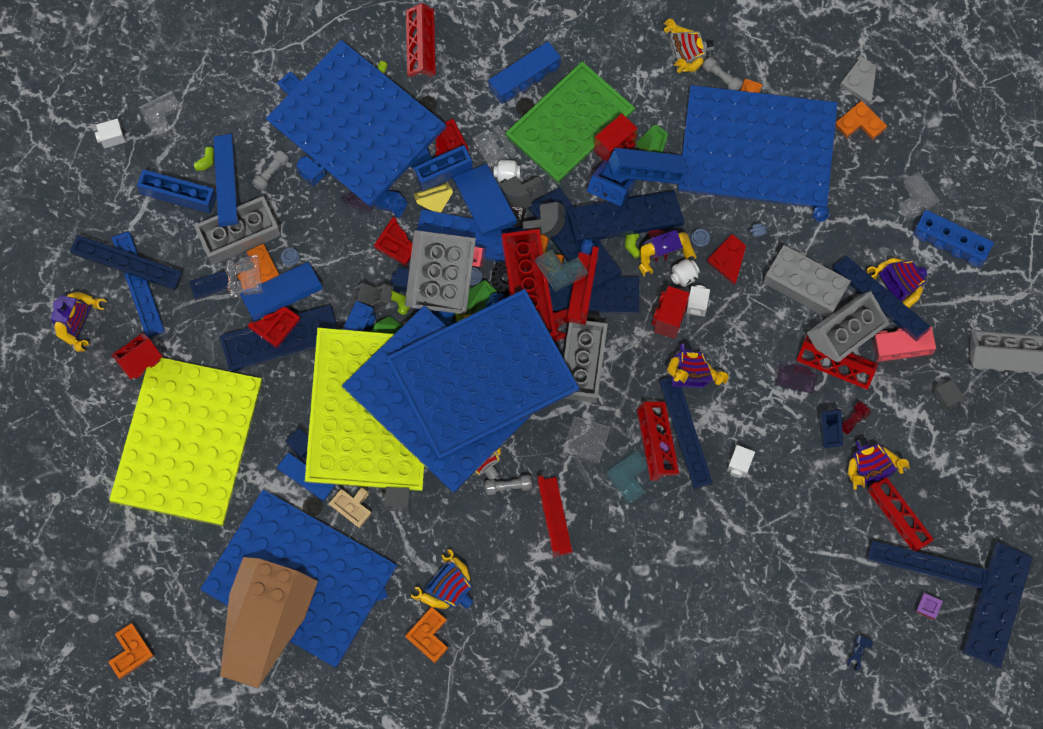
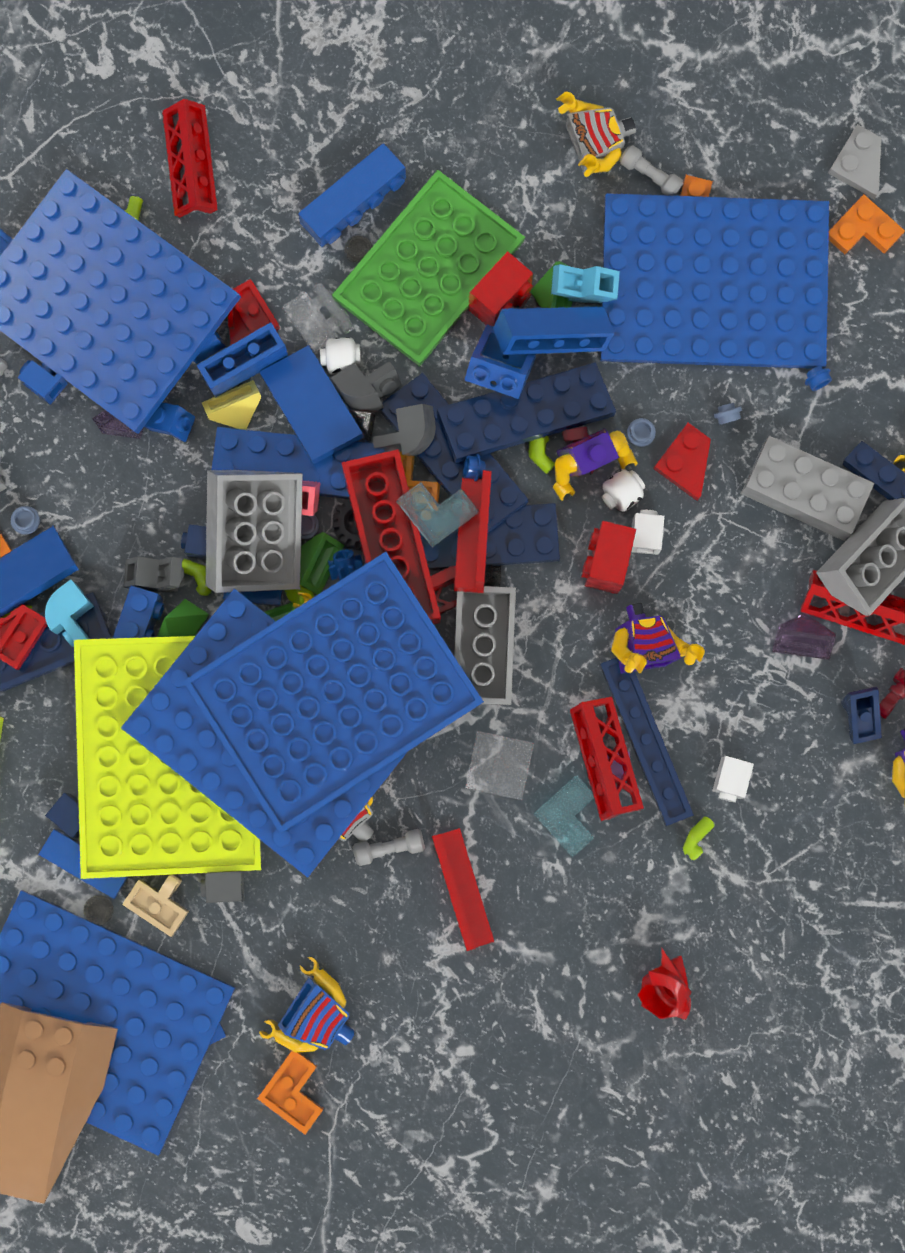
camera: 10 degrees left, 10 degrees up
(312, 311) = (64, 609): none -> medium azure brick
(394, 243) = (181, 484): red wing -> none
(429, 103) = (210, 259): clear smoke plate -> none
(671, 141) = (585, 285): none -> medium azure brick
(683, 591) = (666, 989): none -> red hair
(712, 497) = (695, 835): none -> lime arm

